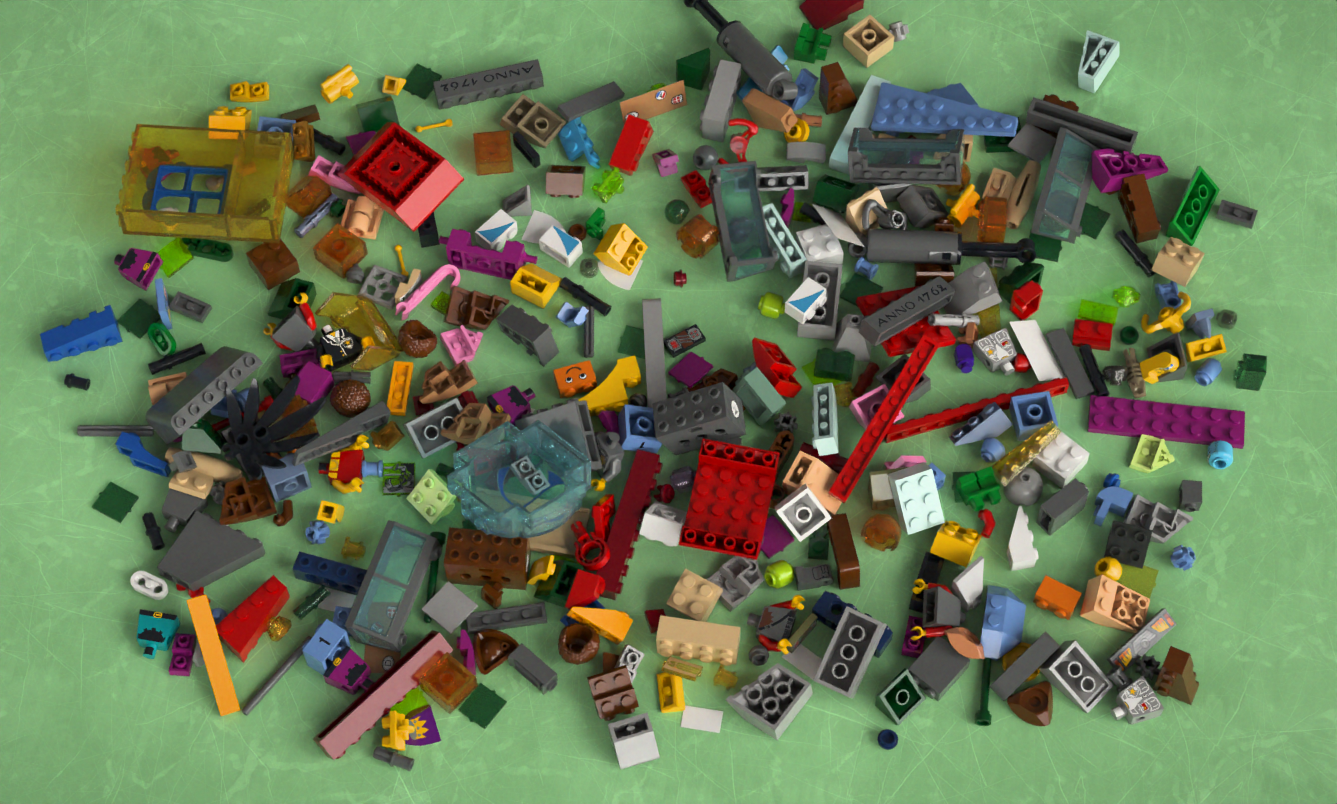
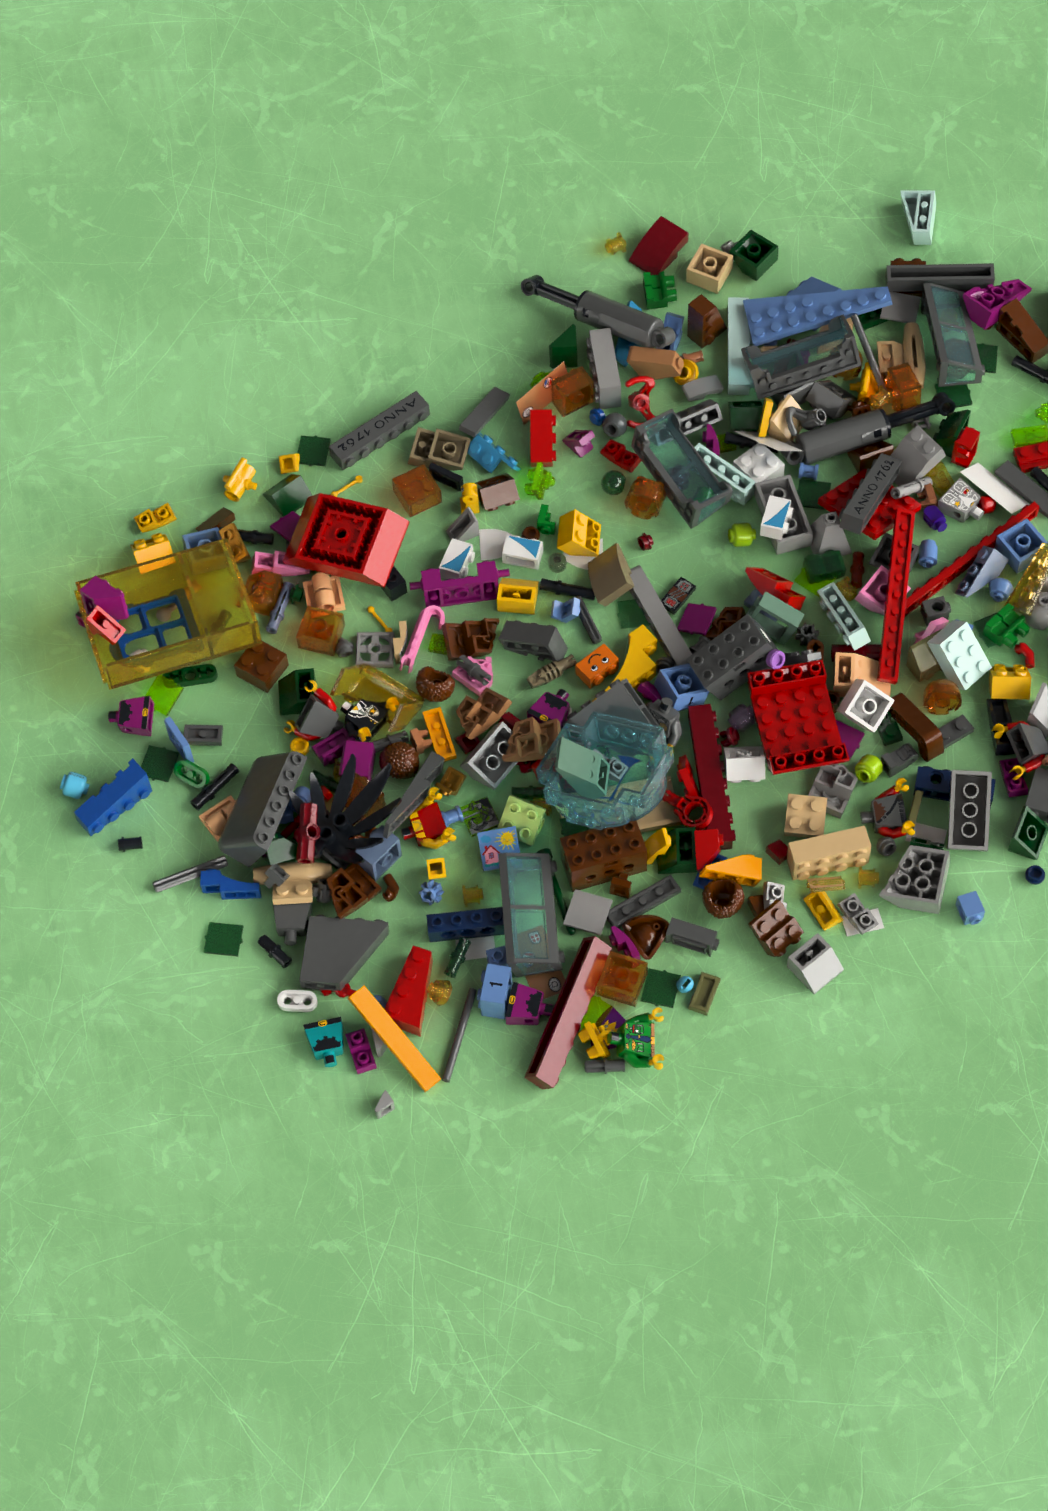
camera: 20 degrees left, 0 degrees up
(55, 309) = (74, 785): none -> medium azure head
(135, 172) = (105, 625): none -> slope
(145, 150) = (101, 593): none -> magenta slope
(176, 713) = (384, 1105): none -> light grey slope
(220, 443) = (307, 833): none -> dark red piece
(270, 351) = (299, 745): none -> yellow tile
(377, 386) = (417, 740): none -> nougat tile
(399, 509) = (496, 842): none -> tile
(431, 746) = (637, 1041): none -> green torso
(459, 339) = (473, 670): none -> dark grey pin
(498, 470) = (582, 769): none -> sand green slope
(507, 715) = (681, 981): none -> medium azure hinge
(519, 727) = (704, 993): none -> olive tile
(529, 368) = (550, 671): none -> dark tan hinge
(536, 178) = (469, 497): none -> yellow leg
(627, 298) = (610, 575): none -> dark tan slope
(680, 111) = (572, 391): none -> clear orange brick
(693, 143) = (597, 416): none -> blue plate
(699, 709) = (857, 914): none -> light grey slope
(733, 435) = (775, 659): none -> medium lavender tile
(761, 442) = (806, 656): none -> dark grey hinge
(797, 668) = (926, 843): none -> dark green plate
(808, 747) = (970, 908): none -> medium blue brick
(845, 201) = (765, 417): none -> yellow tile
(879, 570) = (956, 730): none -> dark grey plate
(917, 43) = (754, 254): none -> dark green slope
(920, 440) = (928, 607): none -> dark grey brick
(940, 389) = (928, 553): none -> medium blue brick
(965, 223) = (880, 398): none -> clear yellow brick
(974, 179) = (868, 352): none -> dark grey piece

